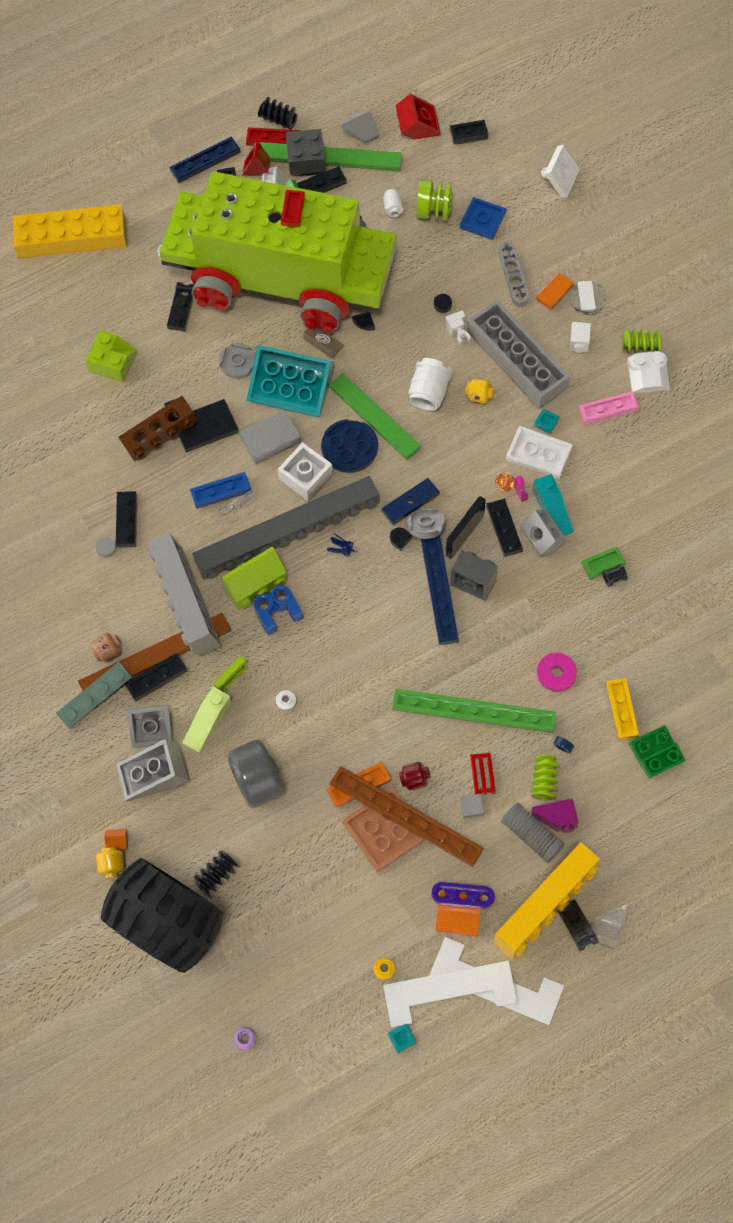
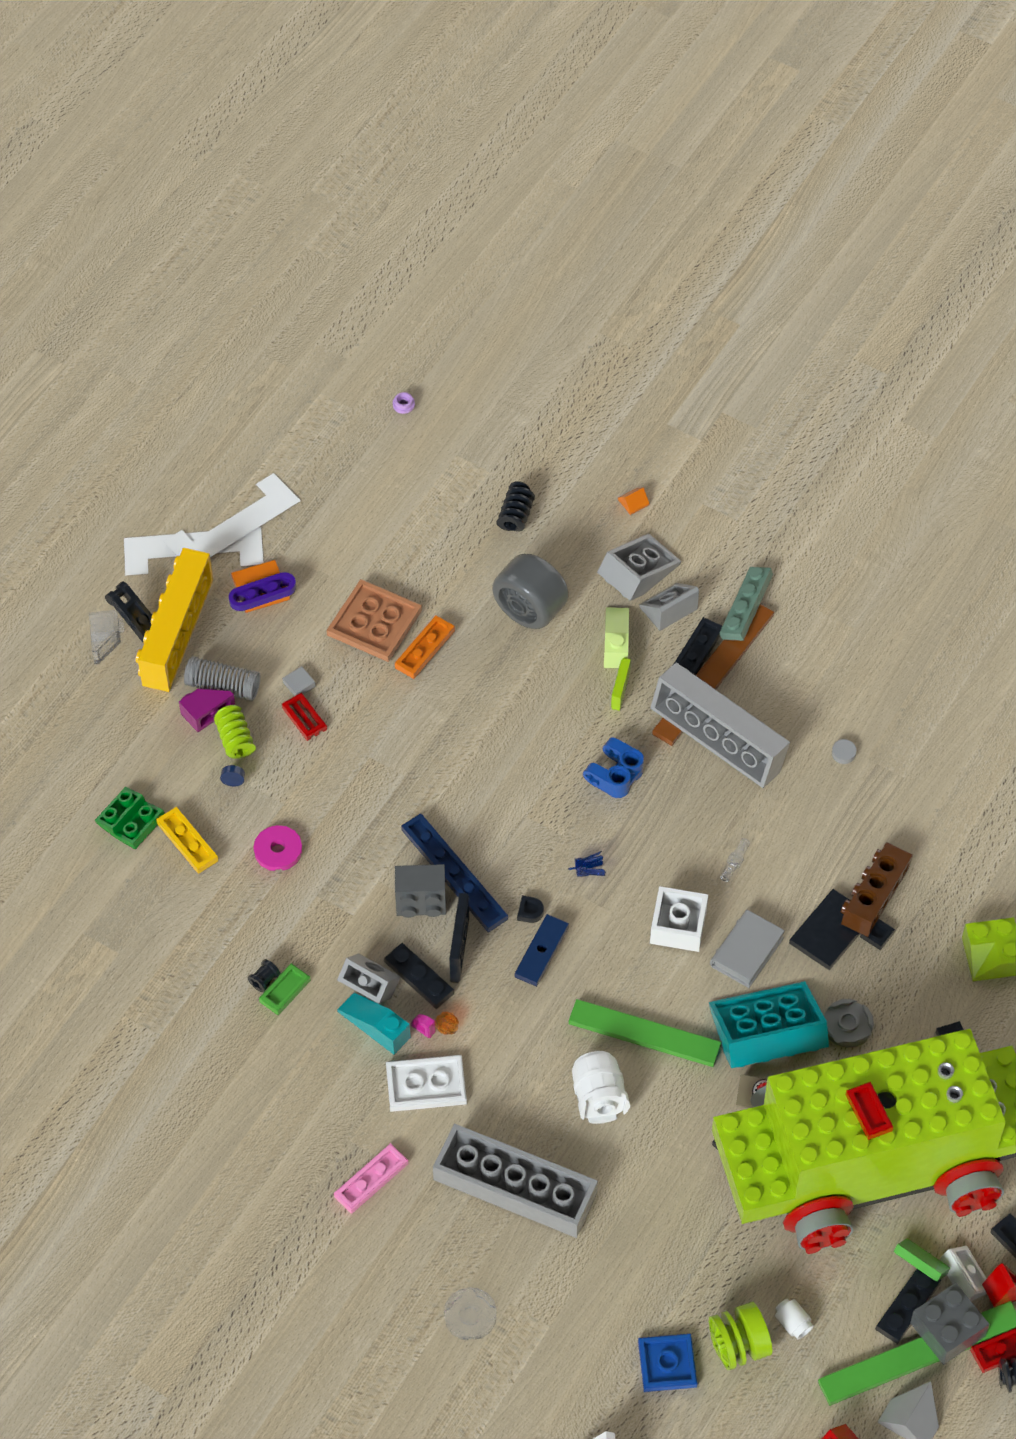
camera: 150 degrees right, 10 degrees down
(106, 647) = (767, 650): nougat head -> none
(110, 862) = (624, 475): yellow head -> none
(126, 519) = (843, 789): black plate -> none
(161, 915) = (529, 454): black tyre -> none
(220, 490) = (762, 863): blue plate -> none
(254, 578) = (657, 781): lime slope -> none
(285, 705) = (549, 696): white plate -> none
(286, 527) = (659, 857): dark grey brick -> none
(349, 446) = (651, 985): dark blue tile -> none
(384, 975) = (306, 514): yellow plate -> none
(402, 1038) = (258, 466): teal tile -> none
(406, 816) = (358, 633): dark orange tile -> none
(414, 776) = (372, 676): dark red head -> none
(426, 523) = (508, 931): light grey tile -> none
(442, 303) = (649, 1215): black tile -> none
(455, 325) = (614, 1189): white piece -> none
(474, 710) = (345, 767): bright green plate -> none
(479, 390) = (537, 1117): yellow head -> none
(513, 274) = (586, 1296): light grey beam -> none
(546, 421) = (437, 1125): teal tile -> none
(555, 291) = (517, 1302): orange tile -> none
(579, 337) = (451, 1246): white brick -> none
(586, 295) = (473, 1310): white sticker -> none
(641, 340) = (369, 1276): lime piece -> none
(648, 372) = (342, 1246): white slope -> none

